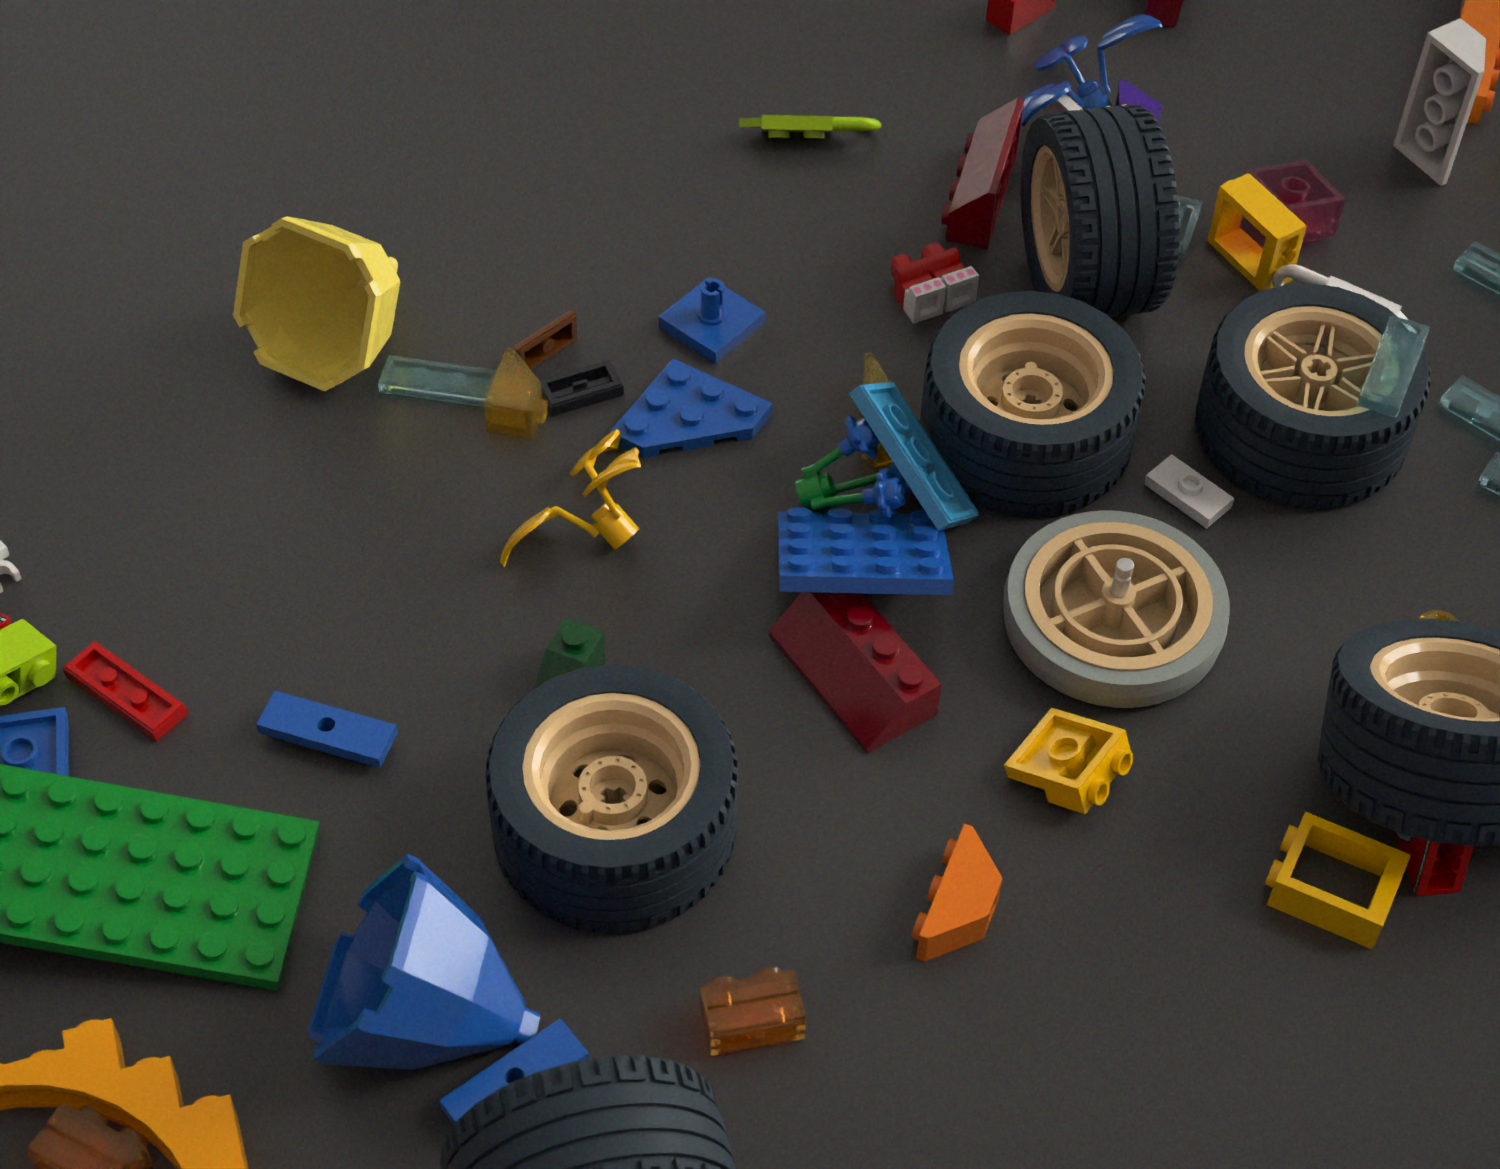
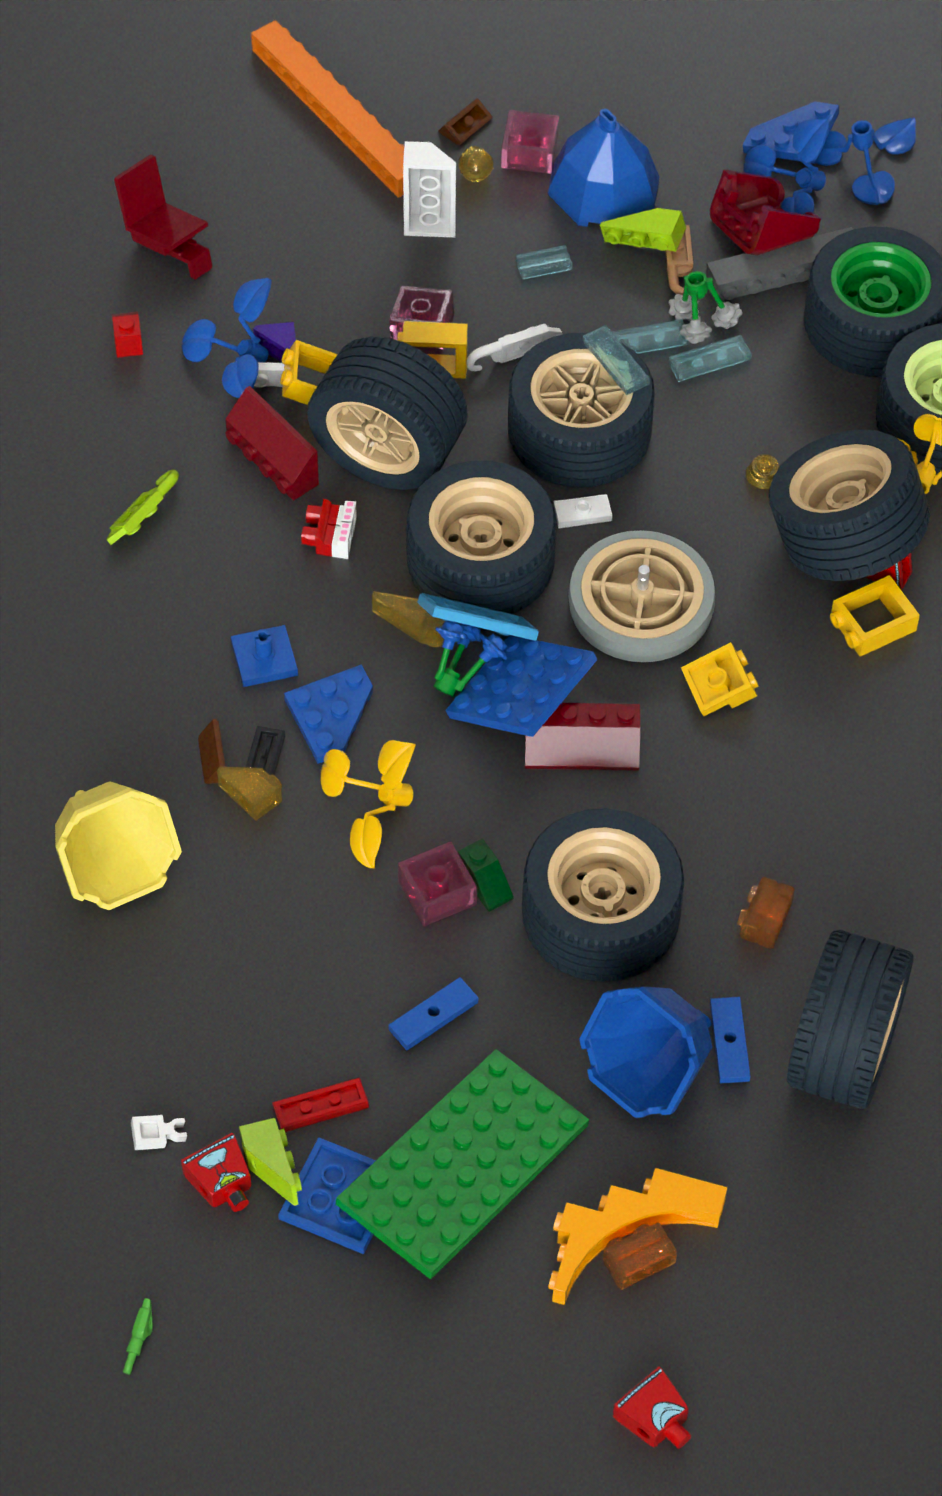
camera: 55 degrees left, 5 degrees up
(436, 380) = (204, 818): clear light blue tile -> none
(508, 627) = (437, 883): none -> clear pink brick
(960, 898) = (765, 779): orange slope -> none

